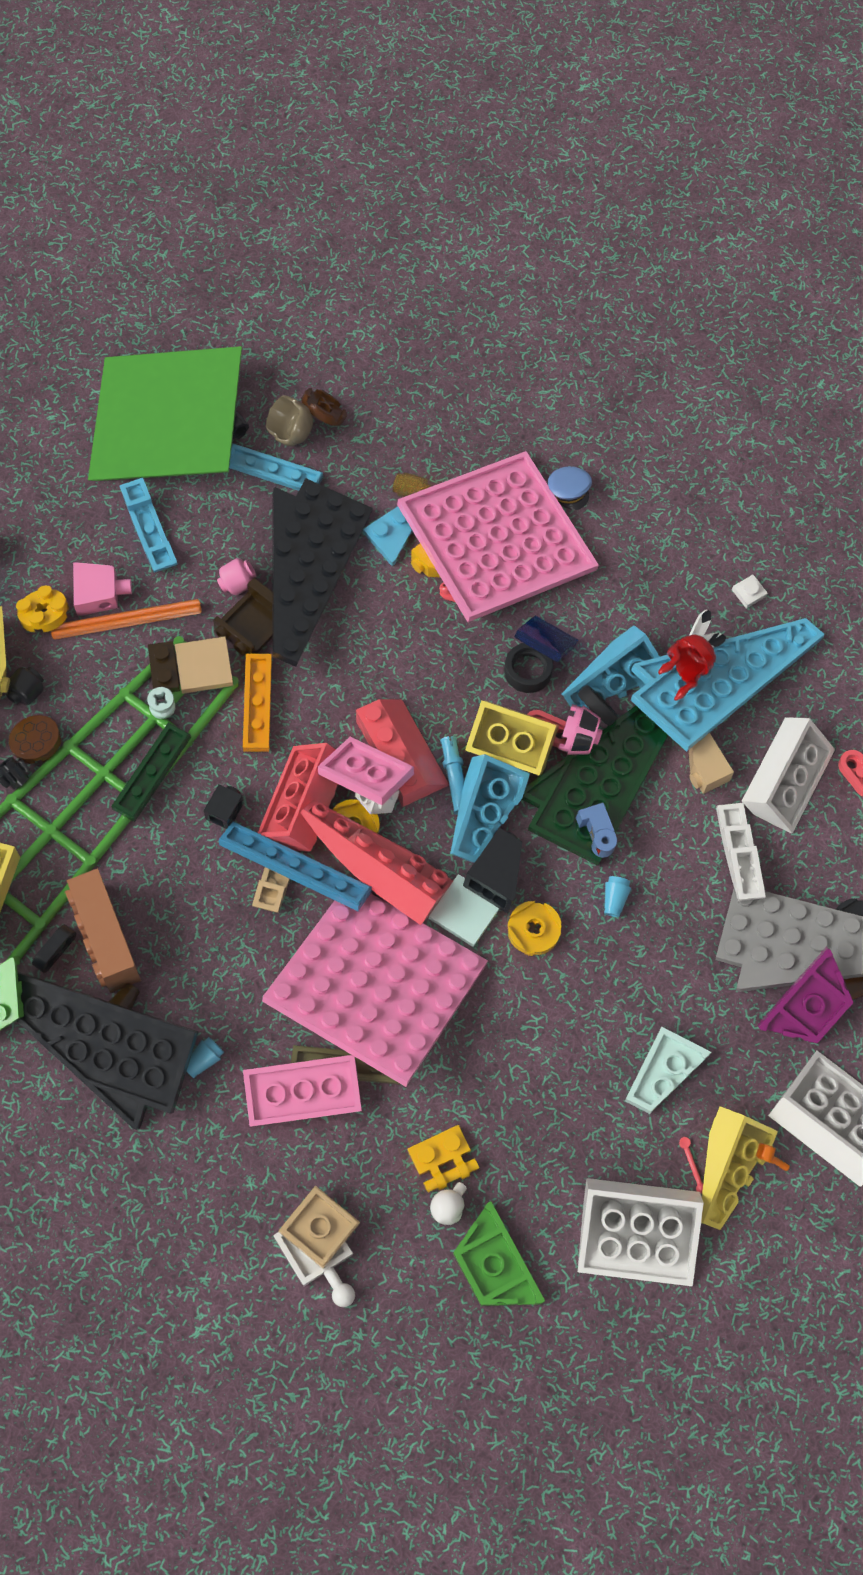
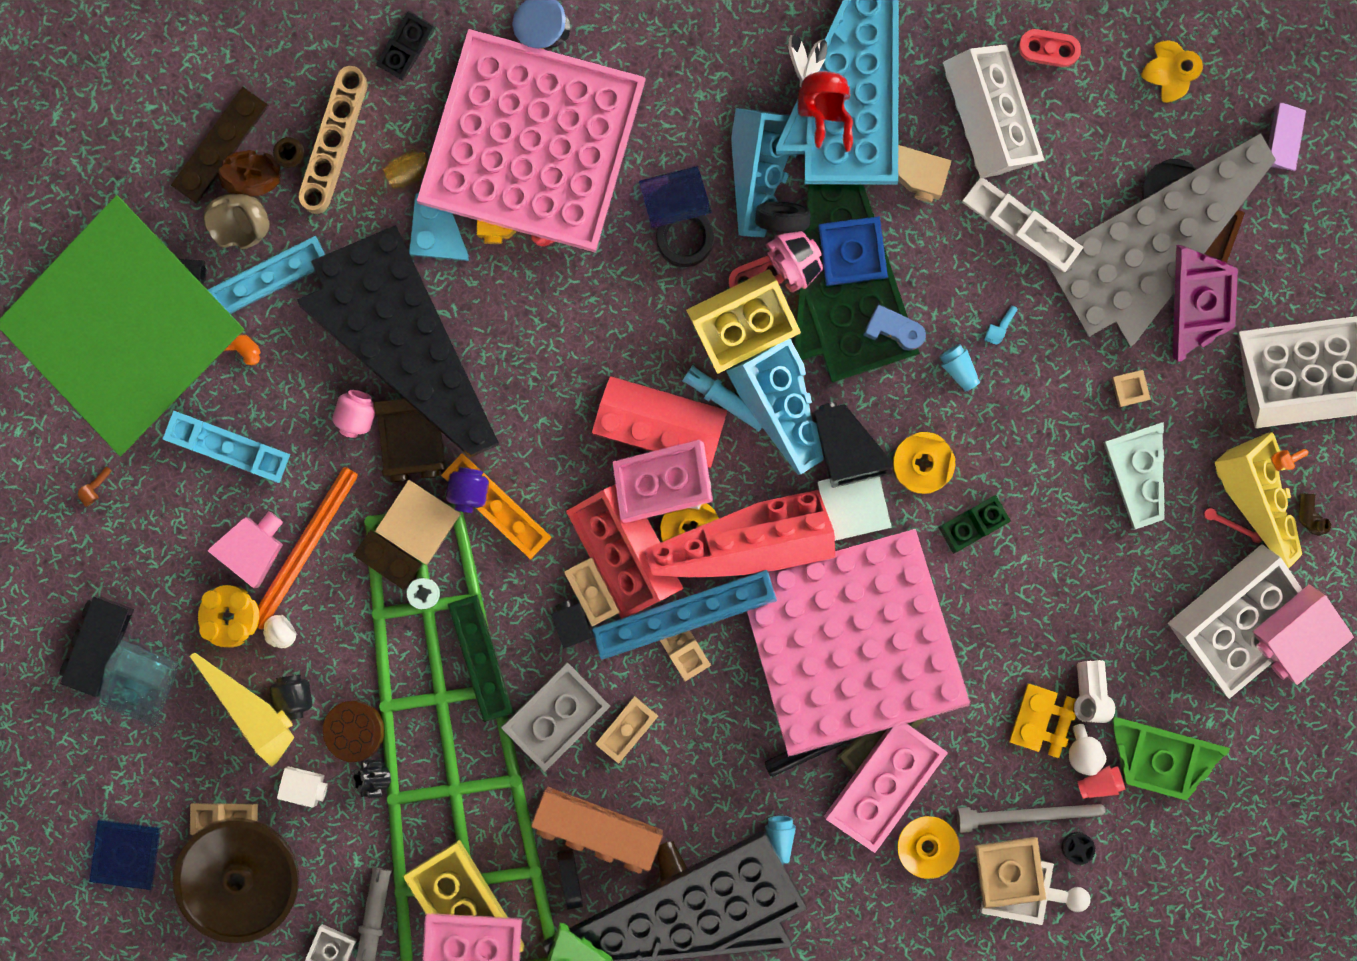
camera: 40 degrees left, 20 degrees up
(47, 478) = (87, 494): none -> dark orange hand
(60, 646) = (279, 631): none -> white piece
(154, 847) = (555, 716): none -> light grey plate
(186, 898) = (626, 729): none -> tan plate
(218, 486) = (246, 348): none -> orange arm
(251, 671) = (467, 489): none -> dark purple head
(256, 801) = (592, 591): none -> tan plate
(278, 1024) = (784, 762): none -> black axle
(281, 1144) = (940, 858): none -> yellow dish
(330, 1170) = (970, 819): none -> light grey piece
(334, 383) = (218, 144): none -> dark brown plate
(356, 417) = (286, 146): none -> dark brown cone
(380, 1256) = (1081, 852): none -> black wheel
(396, 427) = (333, 125): none -> tan beam
(439, 1237) = (1105, 783): none -> coral cone
(476, 431) = (405, 46): none -> black slope
(486, 1176) = (1093, 702): none -> white piece
(527, 996) = (974, 524): none -> dark green slope
(619, 765) = (852, 251): none -> blue tile
(658, 899) = (996, 334): none -> medium azure hand
(668, 1275) = (1302, 635): none -> bright pink brick
(711, 1013) = (1130, 388): none -> tan plate
(749, 1208) = (1310, 518): none -> dark brown arm

